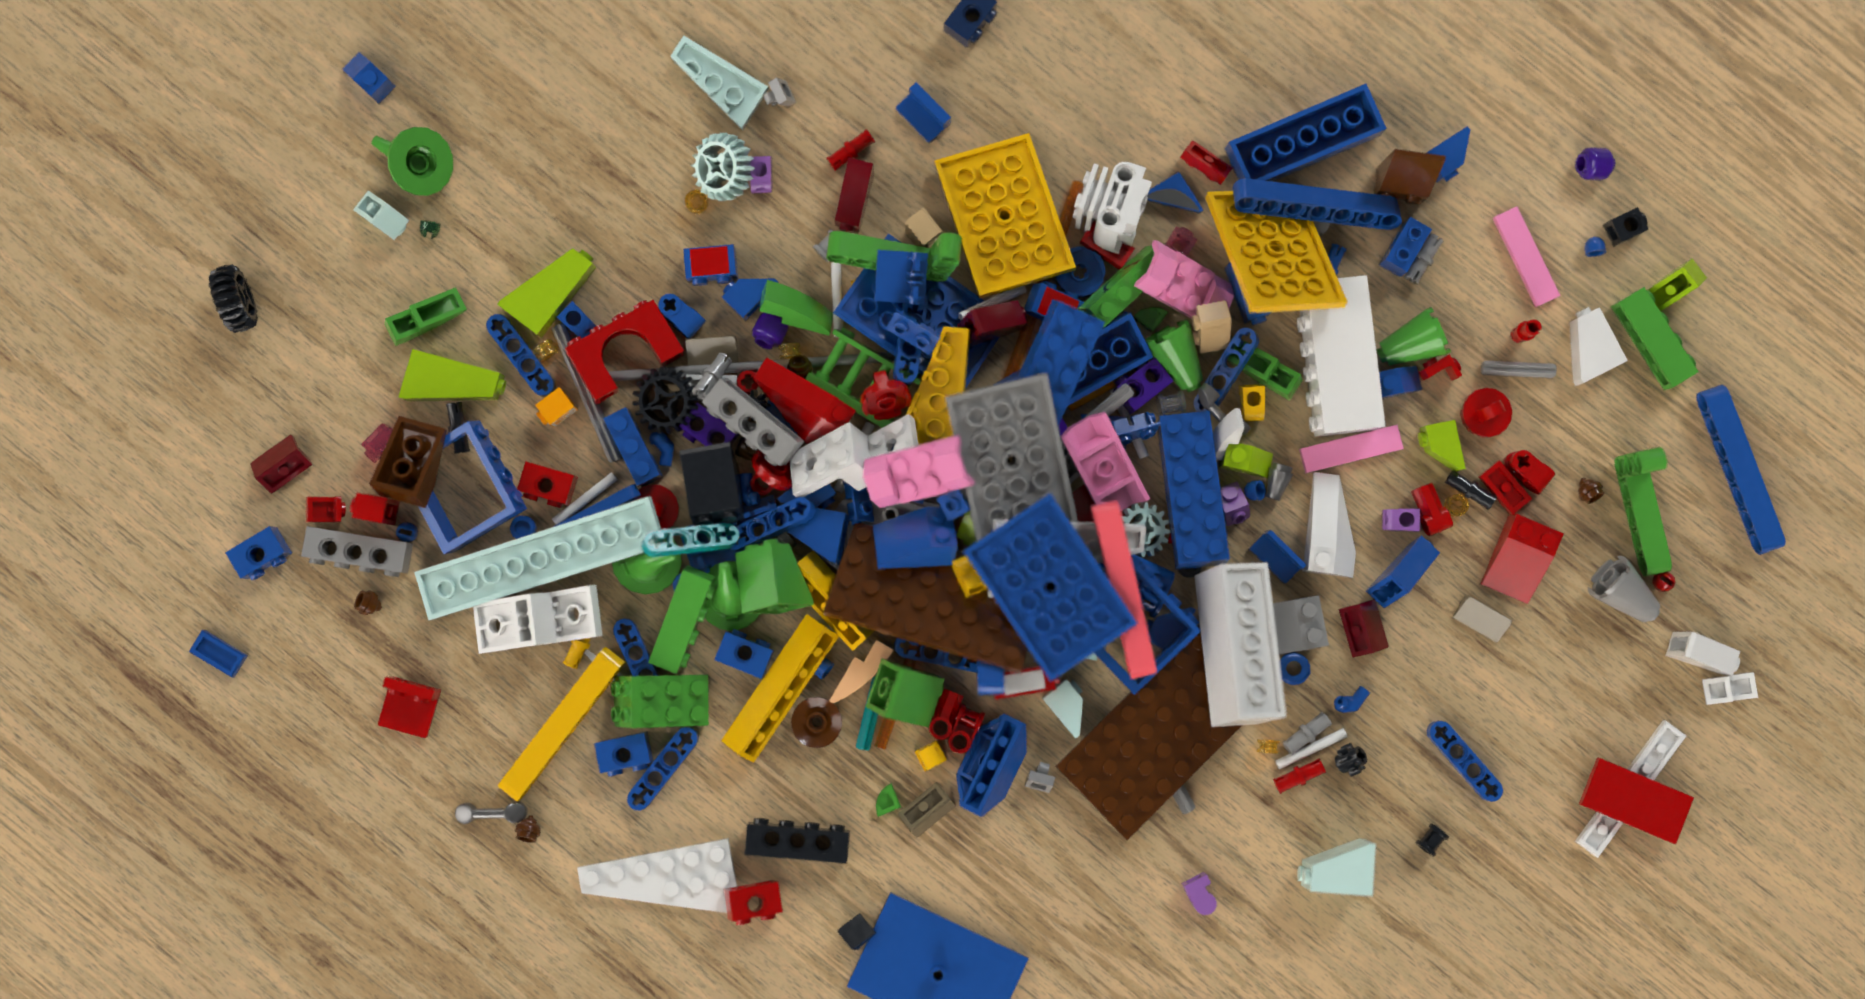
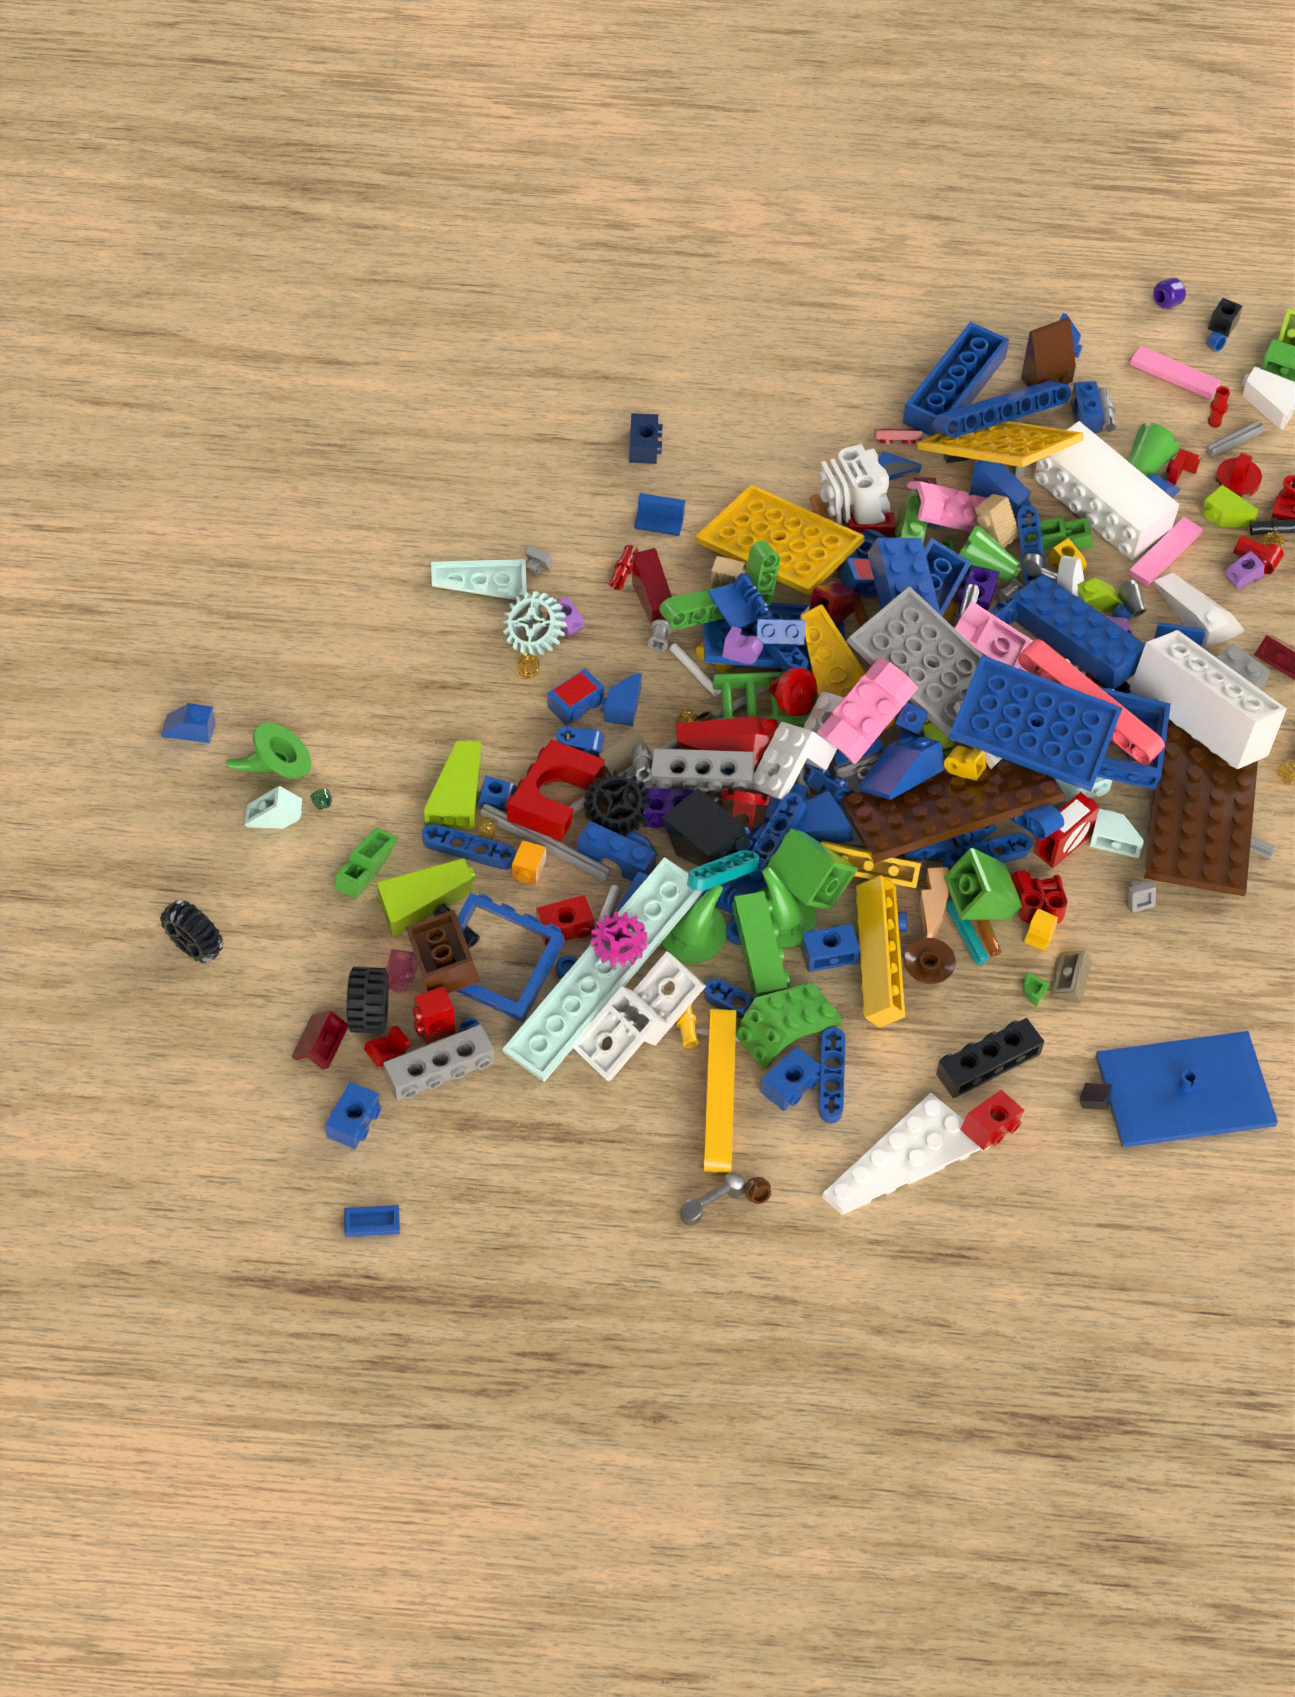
camera: 30 degrees left, 30 degrees down
(328, 461) = (367, 1000): none -> black tyre
(367, 602) = (478, 1097): reddish brown plate -> none
(408, 706) = (575, 1152): red bracket -> none
(545, 549) = (622, 949): none -> dark pink gear
(769, 331) = (660, 714): dark purple head -> none
(795, 308) = (668, 682): bright green slope -> none
(869, 325) = (741, 648): none -> medium lavender leg
(991, 764) = (1092, 901): blue wedge -> none
(1403, 572) = (1277, 602): blue slope -> none

